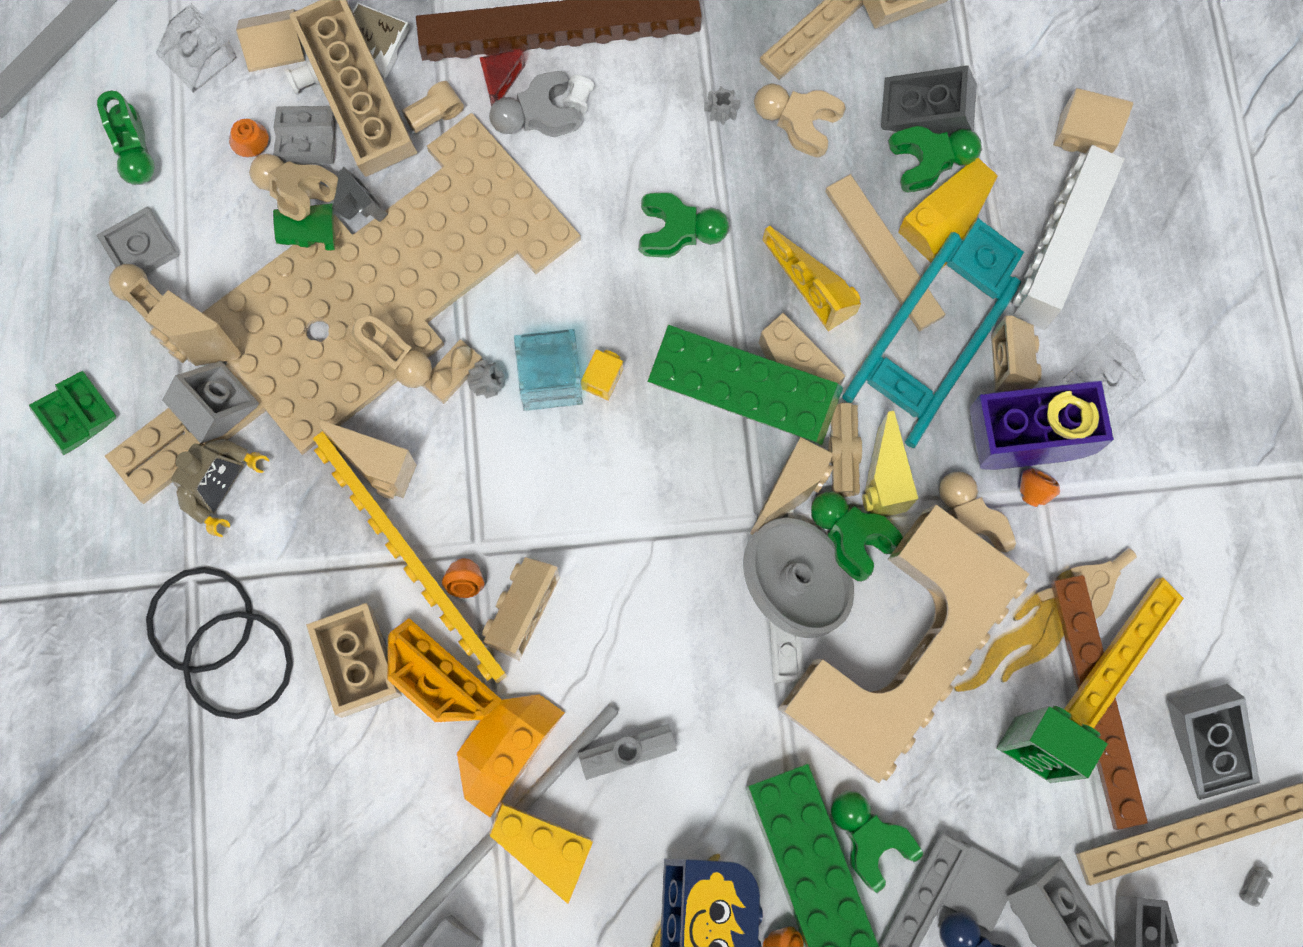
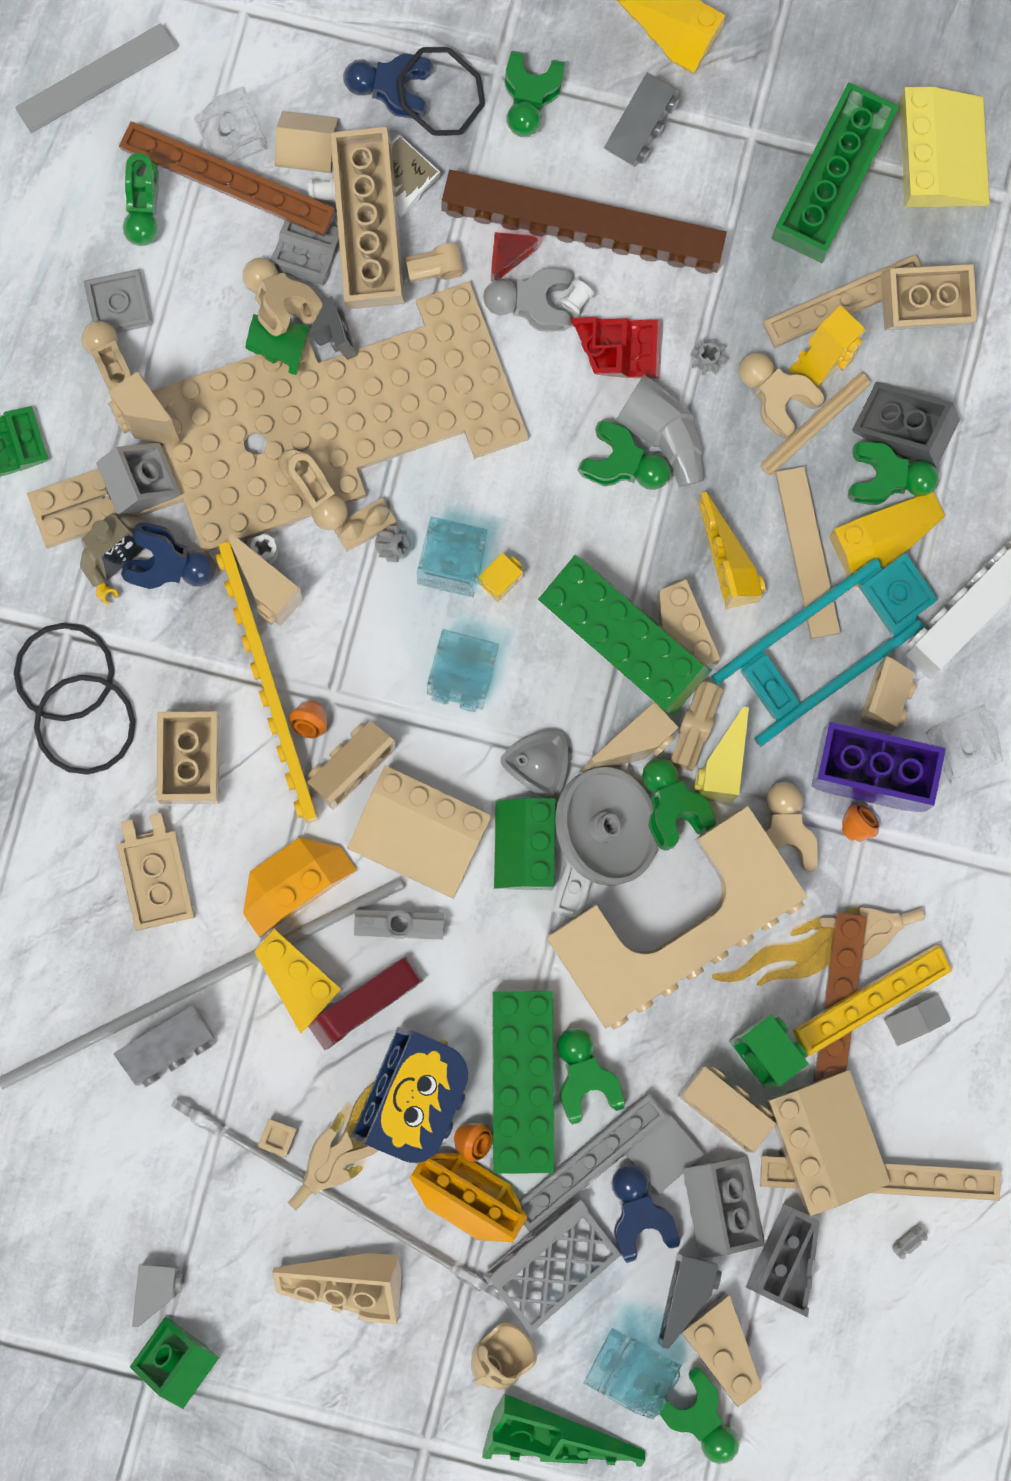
camera: 15 degrees right, 5 degrees up
(210, 94) = (228, 179): none -> dark orange plate
(248, 138) = (258, 236): orange cone -> none
(268, 471) = (168, 561): none -> dark blue piece
(355, 422) = (260, 542): none -> white bush
(360, 793) = (154, 875): none -> tan tile
(435, 678) = (254, 799): light orange wedge -> none
(599, 475) = (462, 670): none -> clear light blue brick
(613, 650) = (419, 831): none -> tan slope
(622, 846) = (364, 1003): none -> dark red beam
(636, 124) = (621, 346): none -> red slope
(707, 178) = (667, 425): none -> light grey piece
(707, 540) = (539, 762): none -> light grey hat
(723, 625) = (524, 844): none -> green slope
(836, 51) = (830, 347): none -> yellow wedge
(844, 133) = (815, 424): none -> tan axle
(1028, 818) = (727, 1108): none -> tan brick
(1088, 414) = (919, 777): light yellow piece -> none
(1140, 818) = (828, 1143): none -> tan slope
(1170, 660) = (917, 1020): none -> light grey slope
(1215, 740) = (925, 1105): dark grey slope -> none

